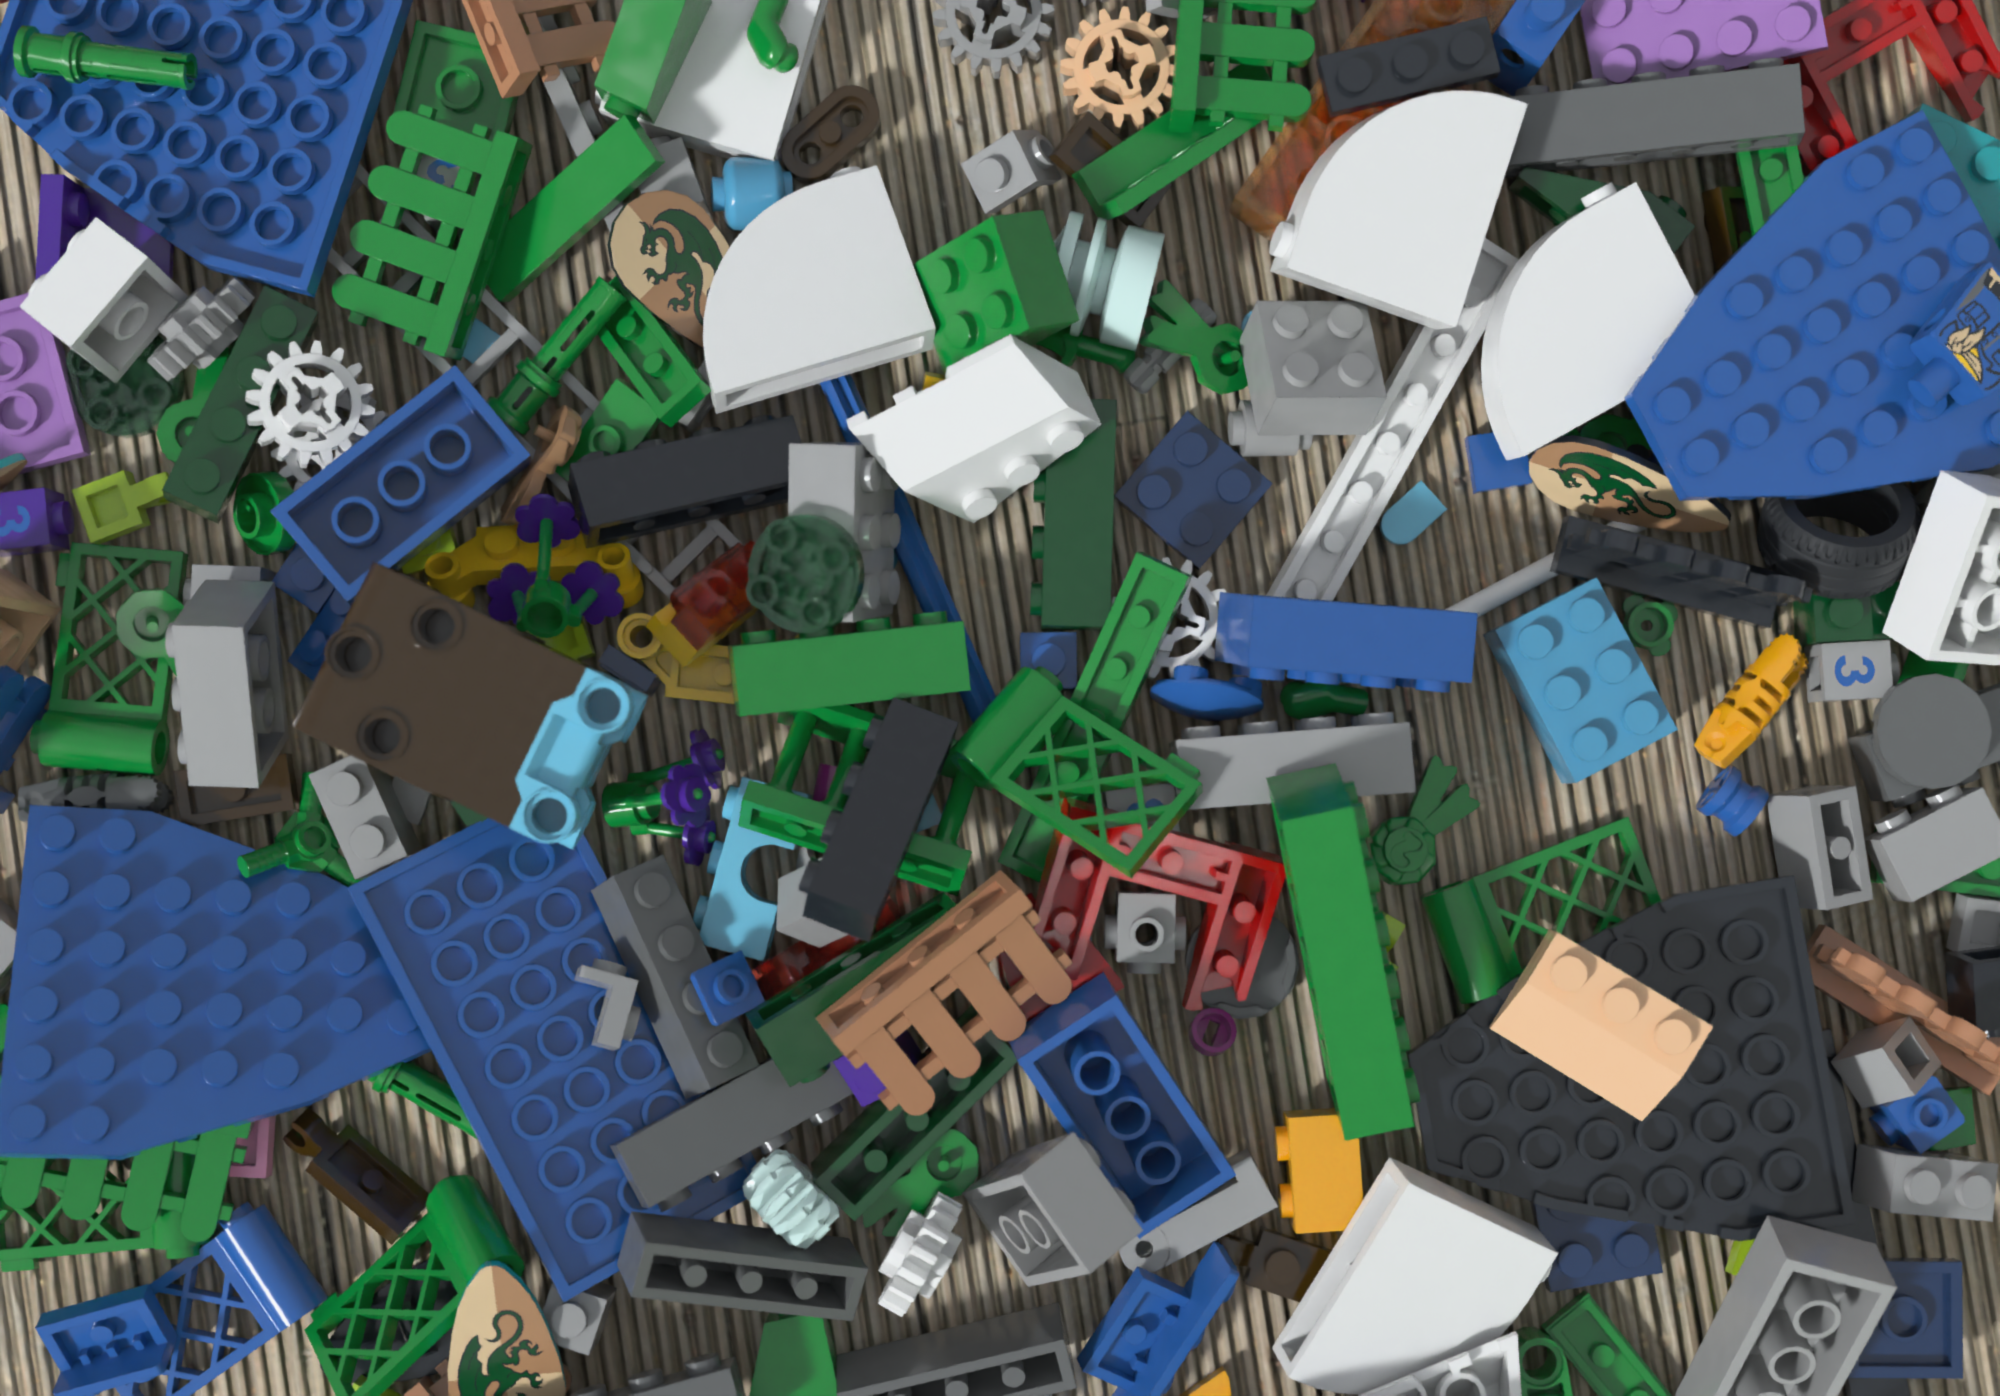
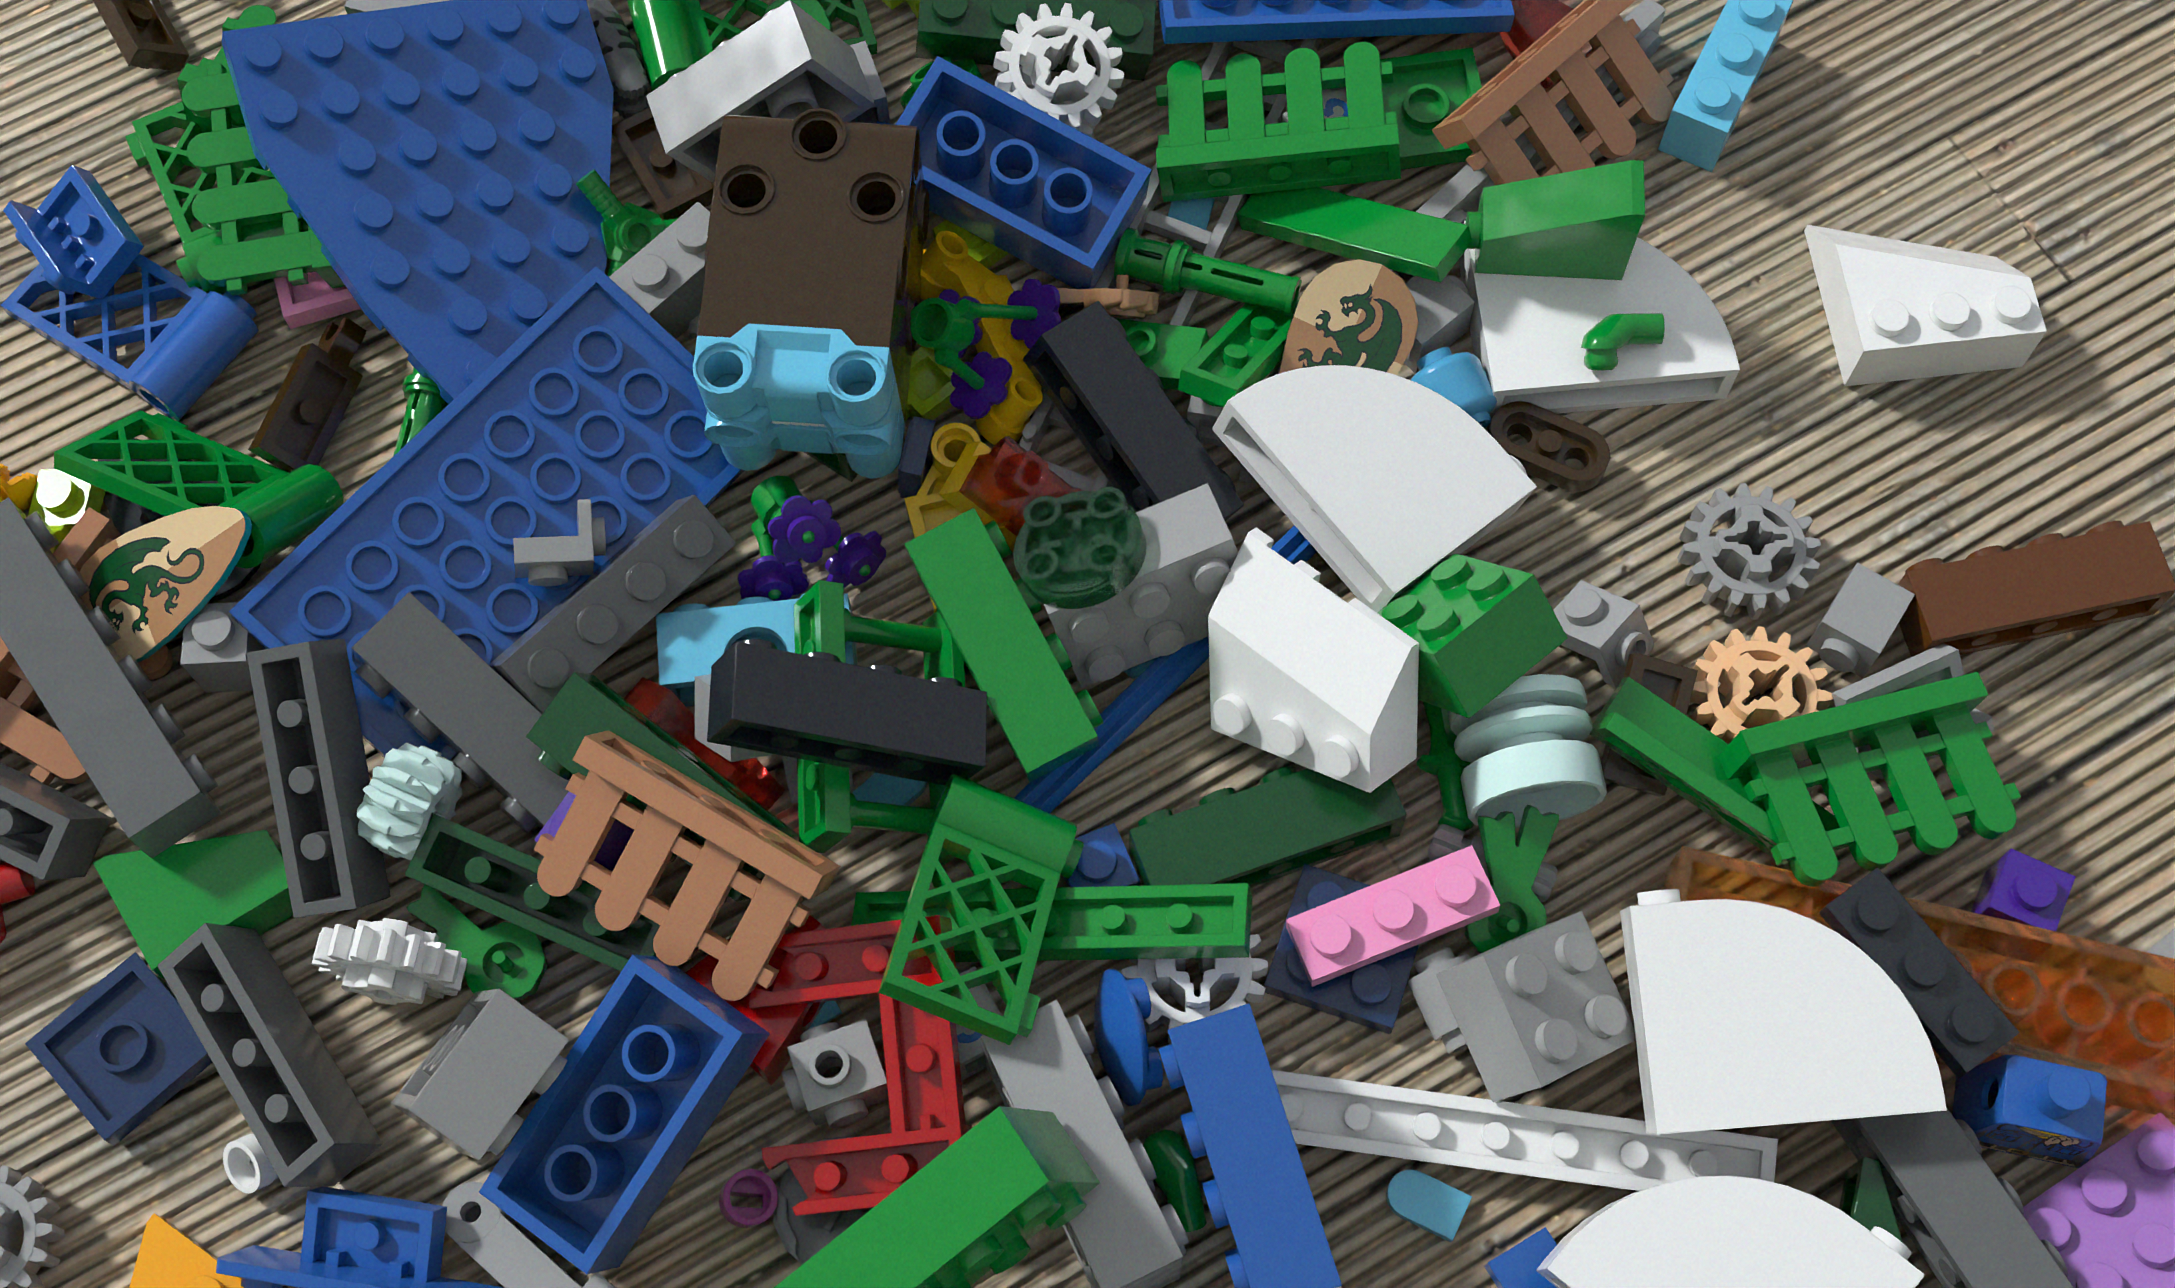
camera: 70 degrees right, 20 degrees down
(727, 988) = (616, 649): blue bracket -> none
(1192, 446) = (1392, 915): none -> bright pink plate

